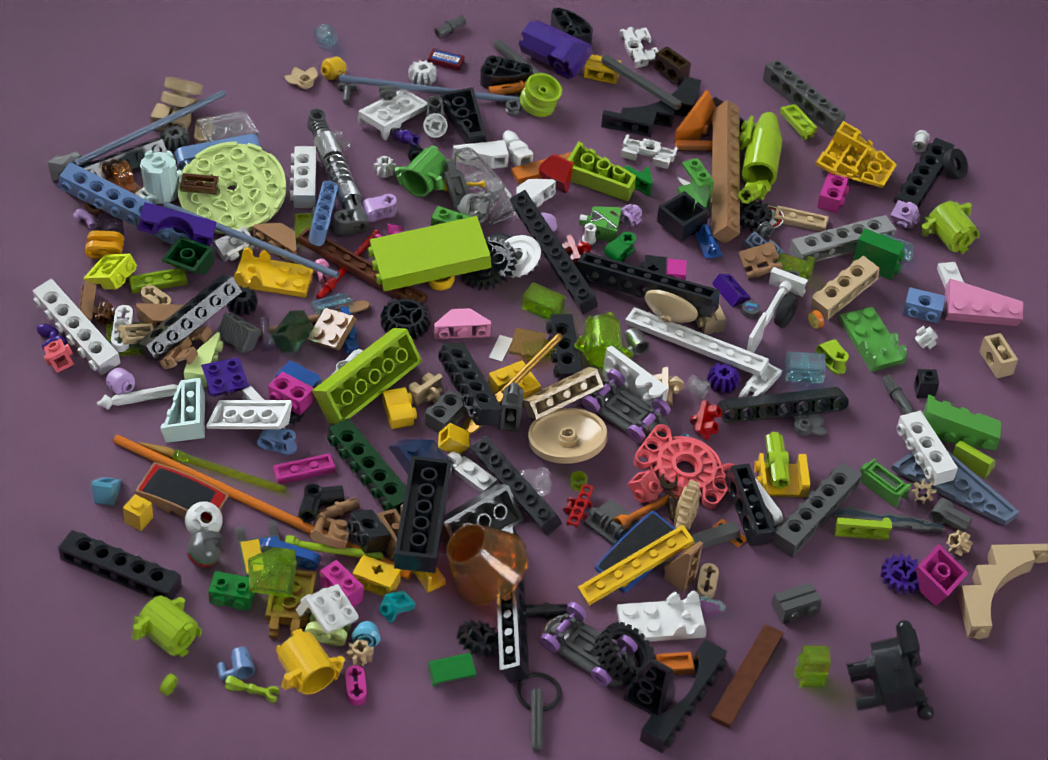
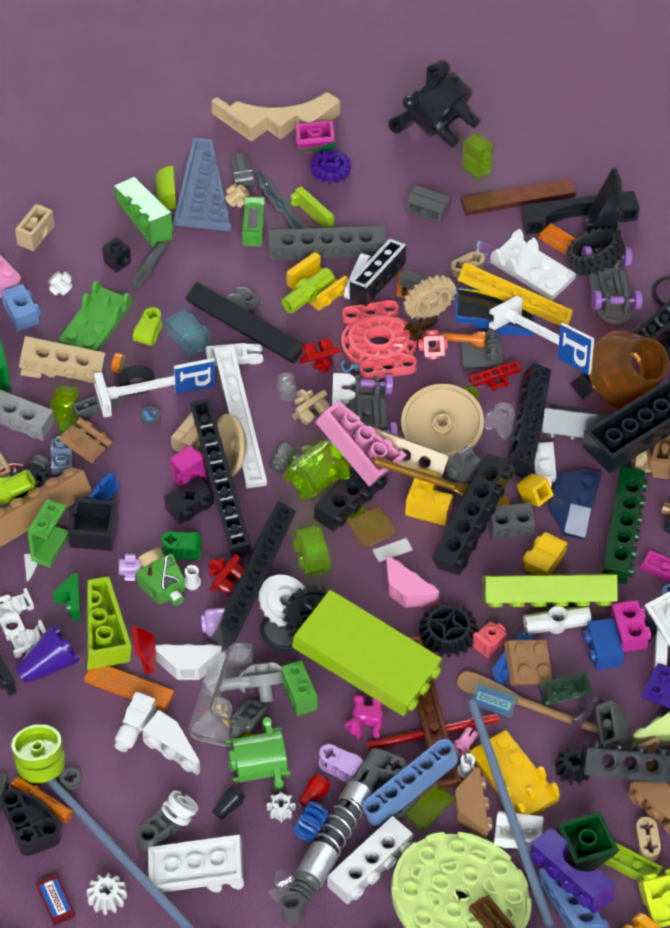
camera: 130 degrees left, 5 degrees up
(304, 251) = (466, 765): none -> white pin
(357, 165) = (310, 821): none -> blue gear
(373, 330) = (490, 639): none -> coral brick
(377, 187) = (315, 789): none -> red cone
(387, 92) = (185, 875): dark grey plate -> none
(406, 136) = (223, 819): dark purple pin -> none
(428, 390) = (503, 550): tan hips -> none
(464, 114) = (136, 794): black wedge -> none
(542, 526) = (574, 346): none -> white piece
(545, 610) = (600, 326): black pin -> none
(587, 347) = (357, 442): none -> bright pink wedge
(605, 141) = (47, 656): none -> dark purple cone
(624, 219) = (151, 556): none -> tan beam
(683, 568) = (484, 254): medium nougat slope -> none
(723, 378) = (258, 377): dark purple gear -> none
(730, 289) = (141, 444): dark purple slope -> none
(926, 448) = (196, 209): white brick -> none
(959, 543) = (264, 151): tan gear -> none

